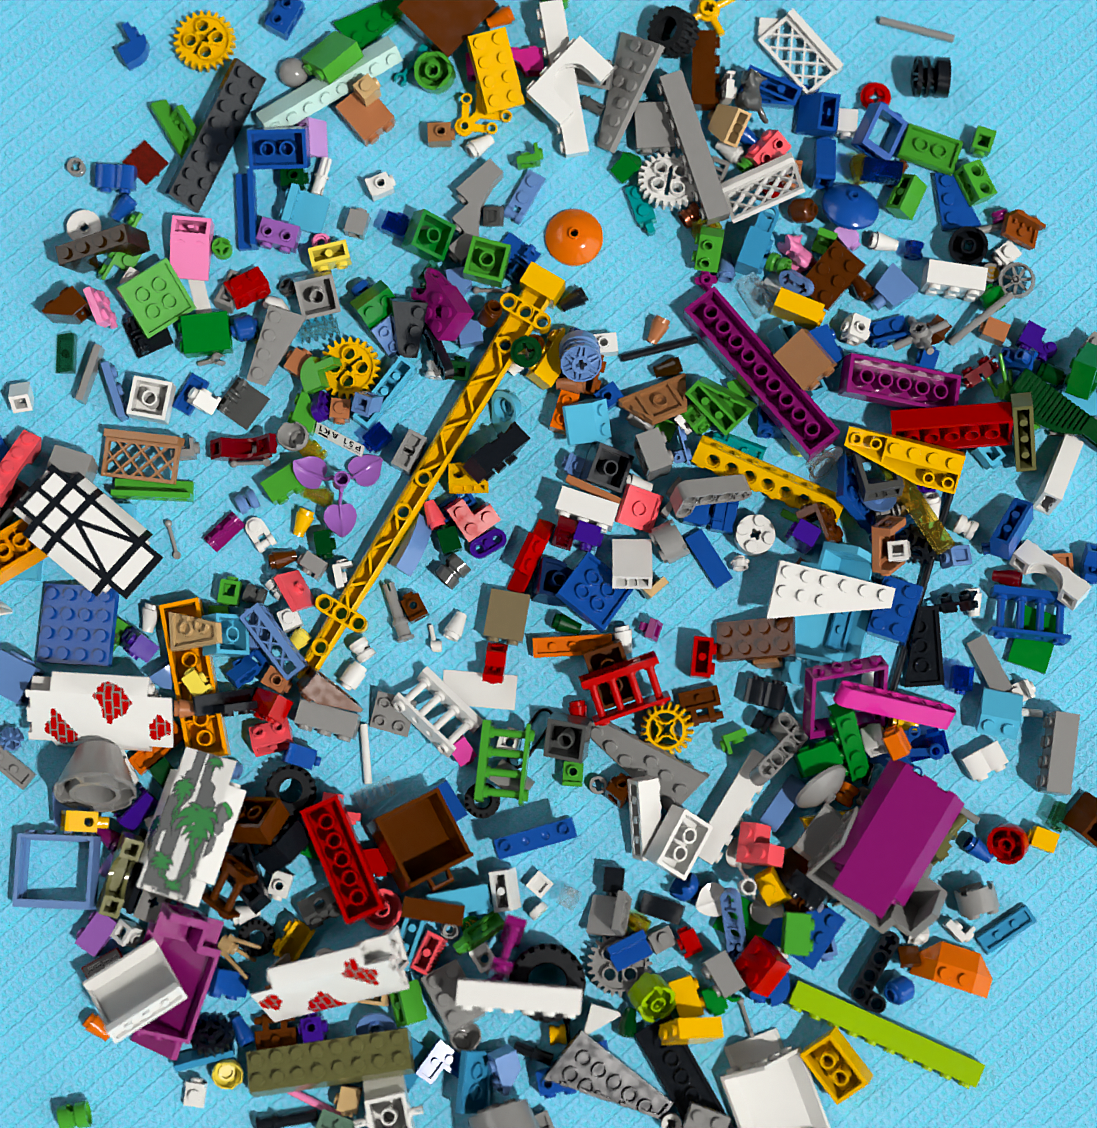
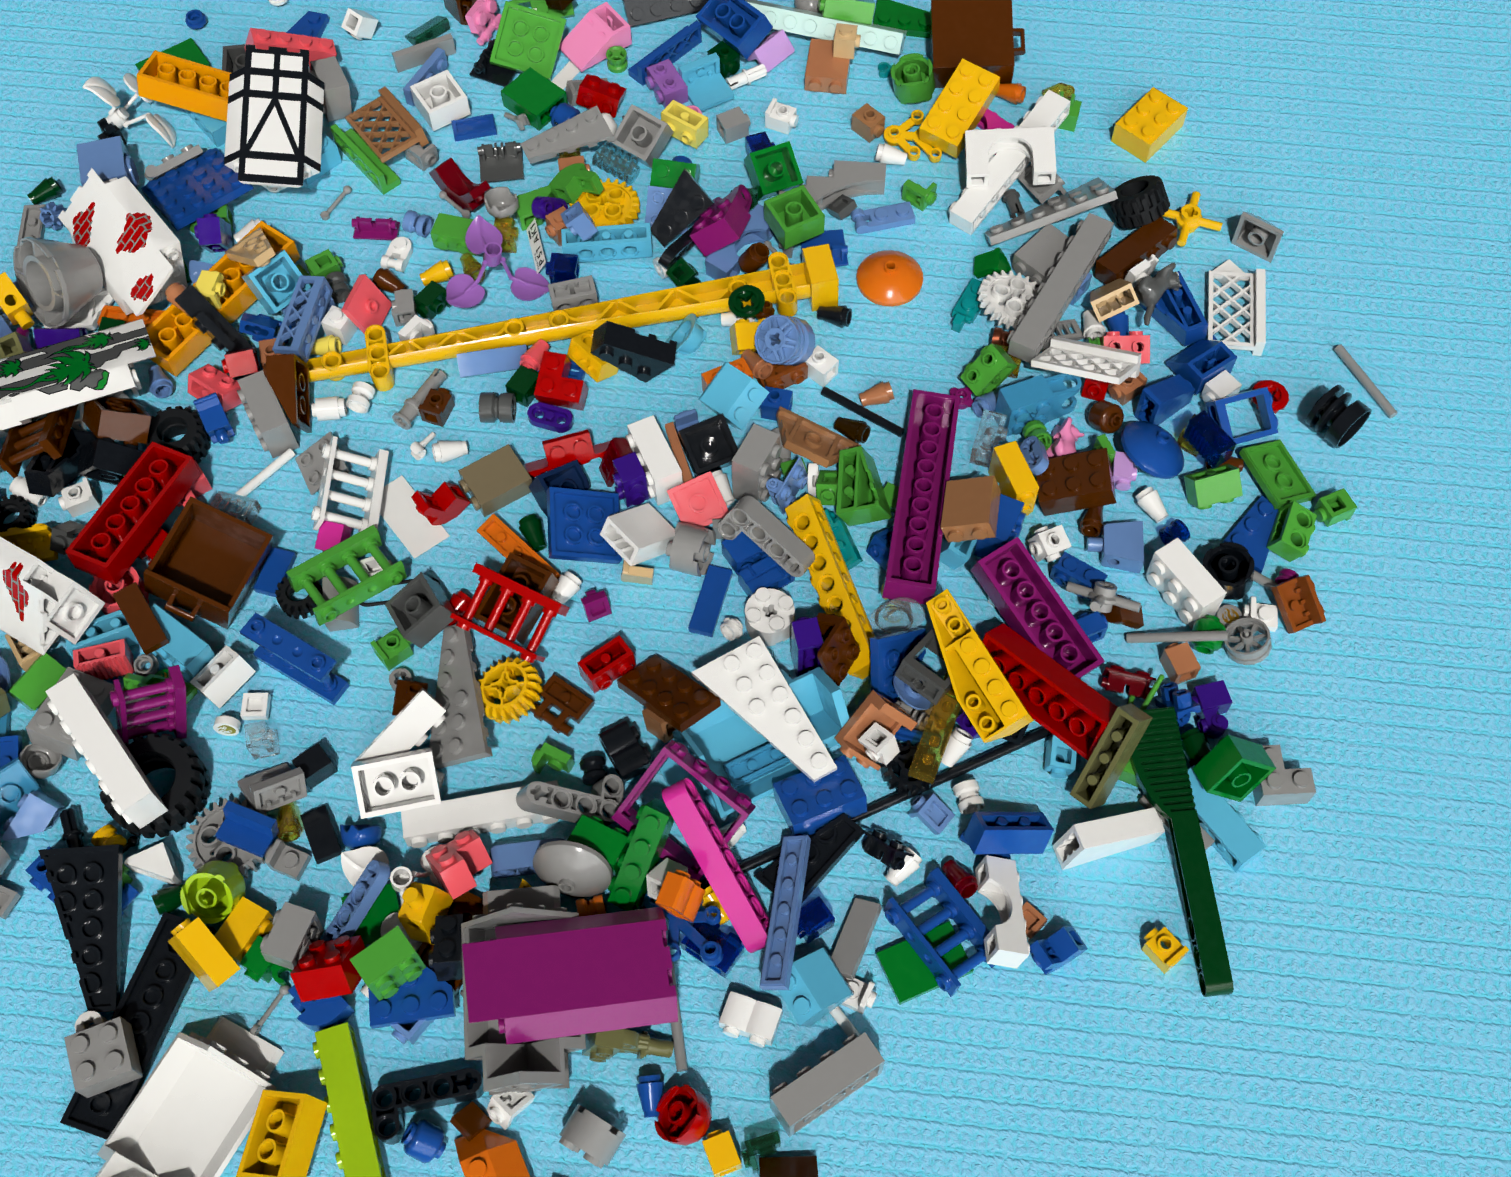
camera: 50 degrees right, 20 degrees down
(35, 623) = (170, 162): none -> light grey plate
(203, 400) = (474, 131): white brick -> none
(689, 941) = (306, 886): red brick -> none
(948, 690) = (785, 913): none -> medium blue tile
(955, 930) = (541, 1144): white bracket -> none

